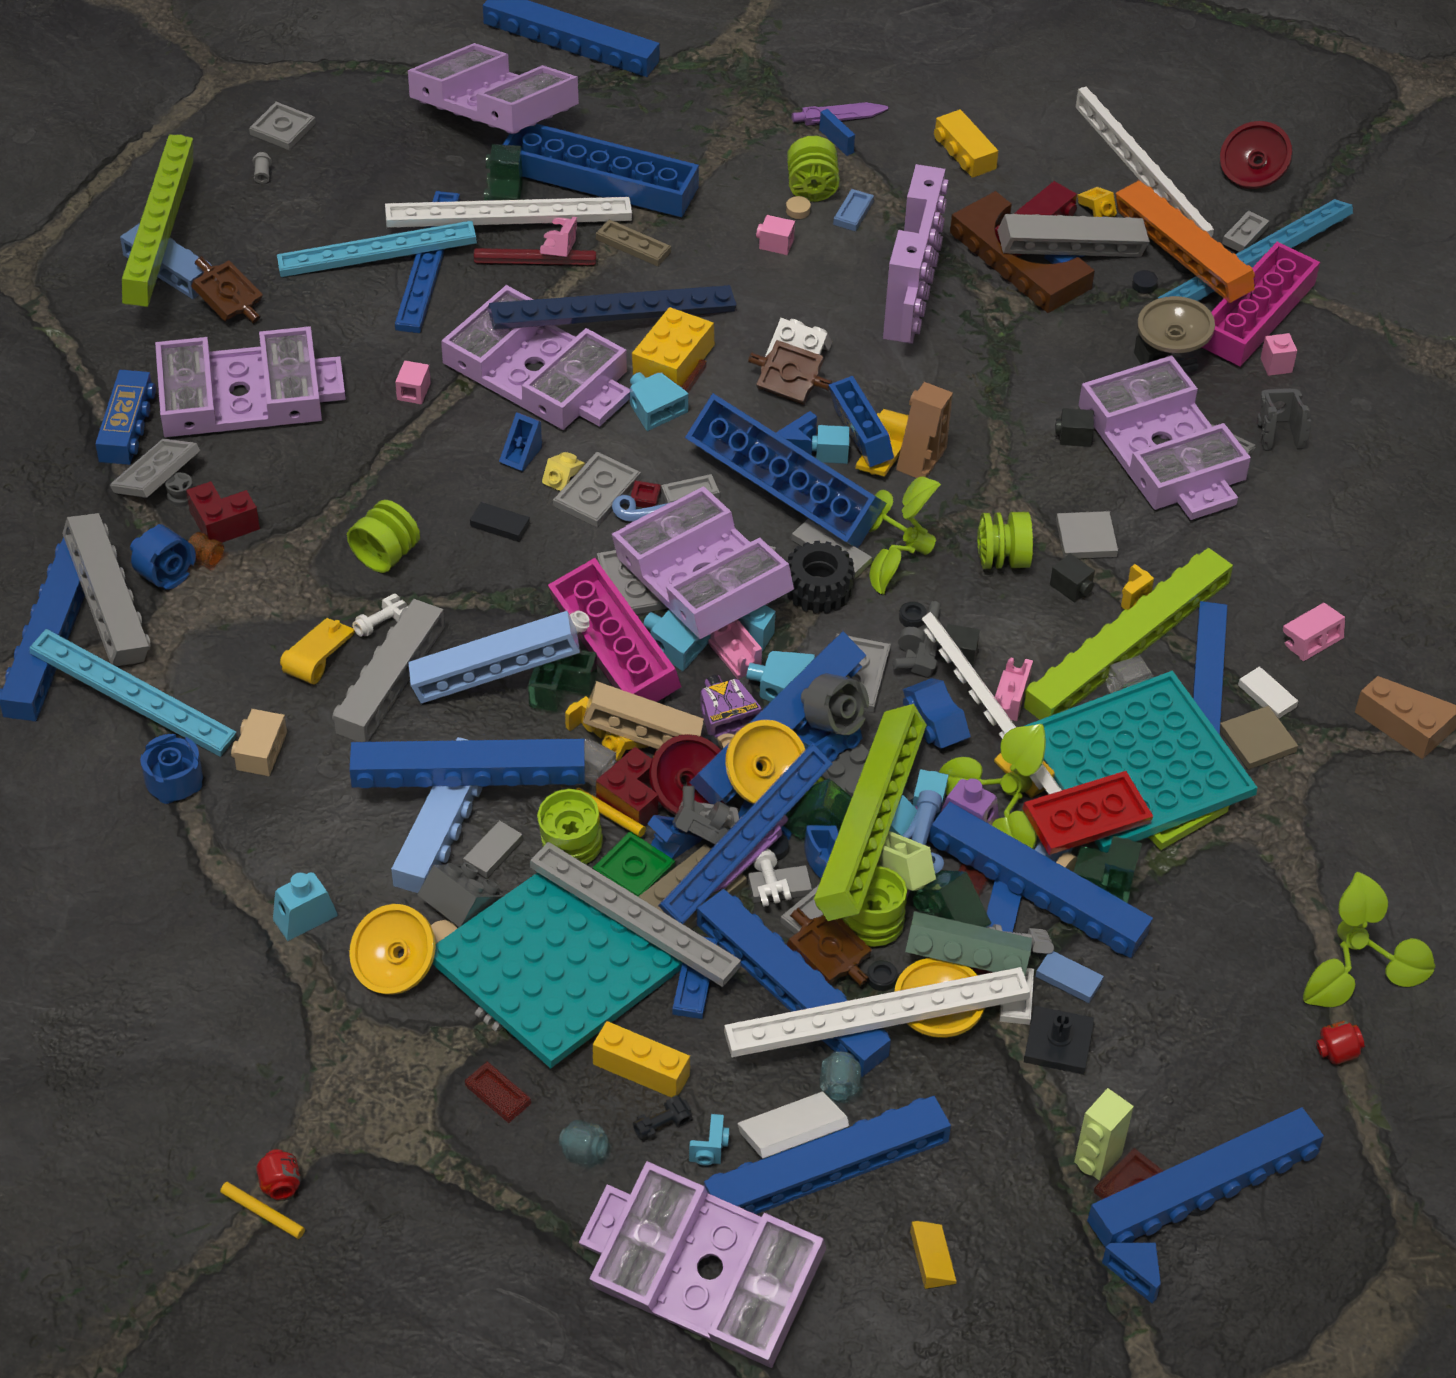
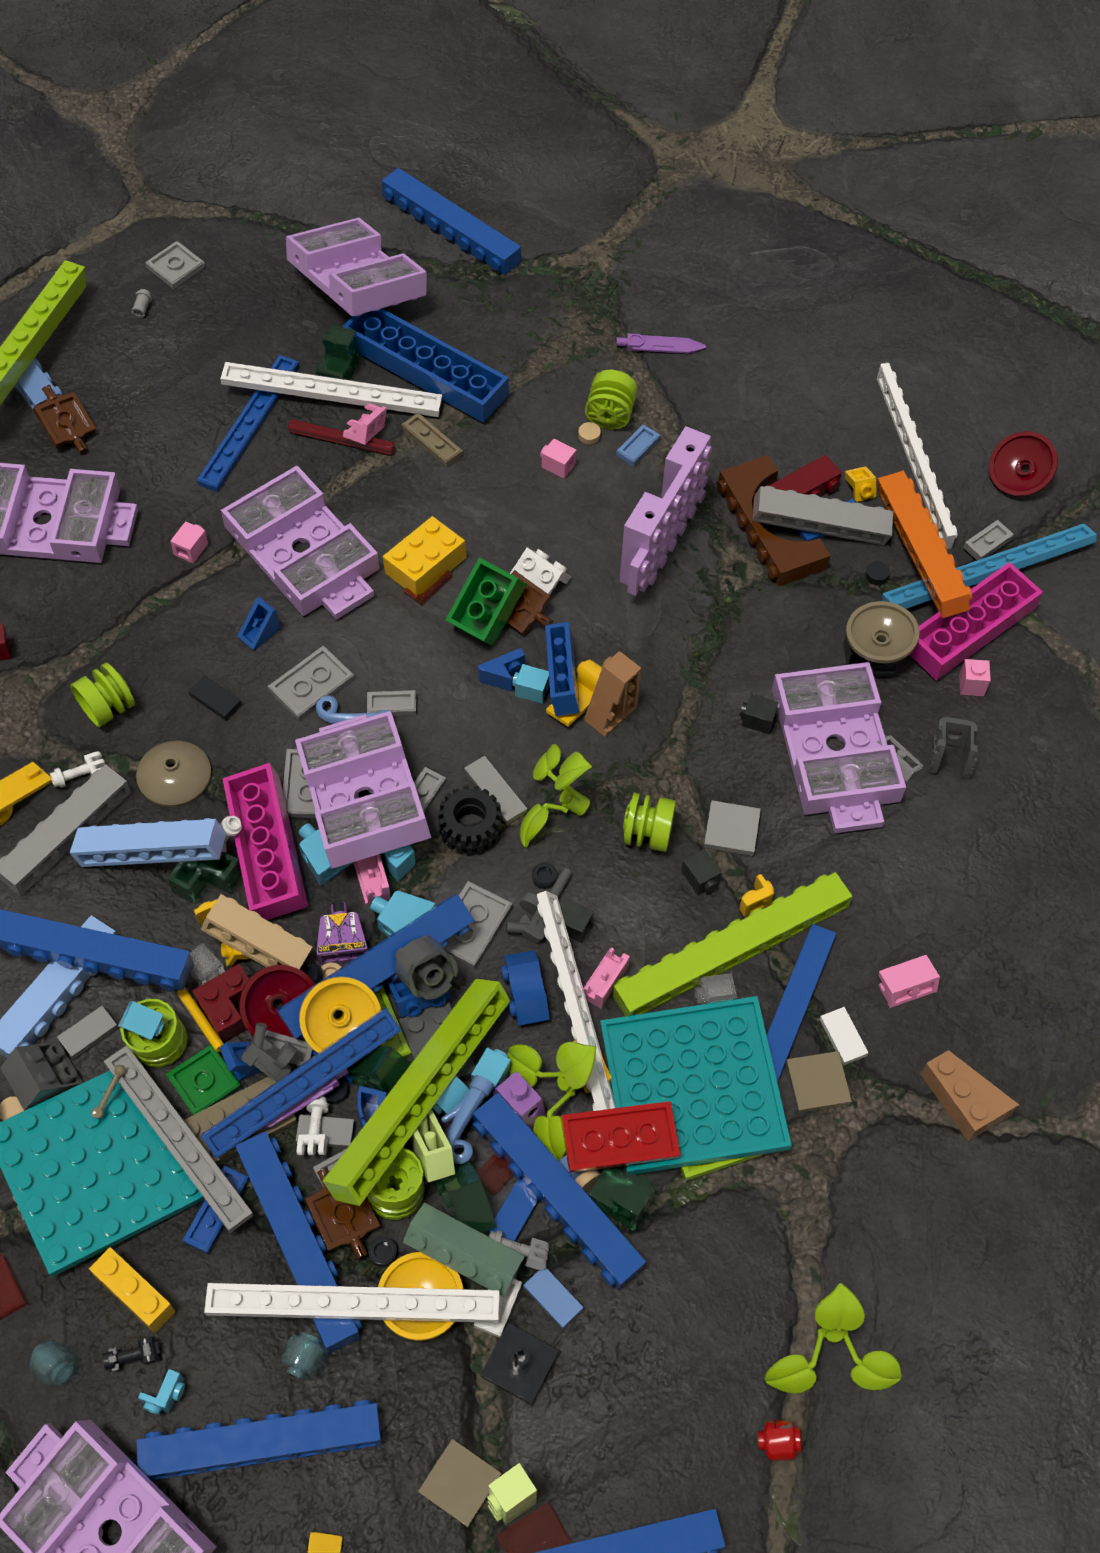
camera: 15 degrees right, 10 degrees up
(376, 248) = (208, 402): medium azure tile -> none
(484, 600) = (175, 784): none -> dark tan dish
(541, 909) = (98, 1112): none -> dark tan hinge
(560, 469) = (285, 656): light yellow bracket -> none
(561, 808) = (141, 1020): none -> medium azure brick
(609, 307) = (382, 505): dark blue plate -> none
(646, 494) = (351, 698): dark red tile -> none
(656, 399) = (393, 604): medium azure torso -> none
(759, 373) = (486, 601): none -> green brick
(785, 470) = (476, 706): blue brick -> none
(793, 1124) = (240, 1396): white tile -> none
(837, 132) = (649, 364): blue tile -> none
(966, 143) = (760, 398): yellow brick -> none
(1040, 1153) = (459, 1483): none -> dark tan tile

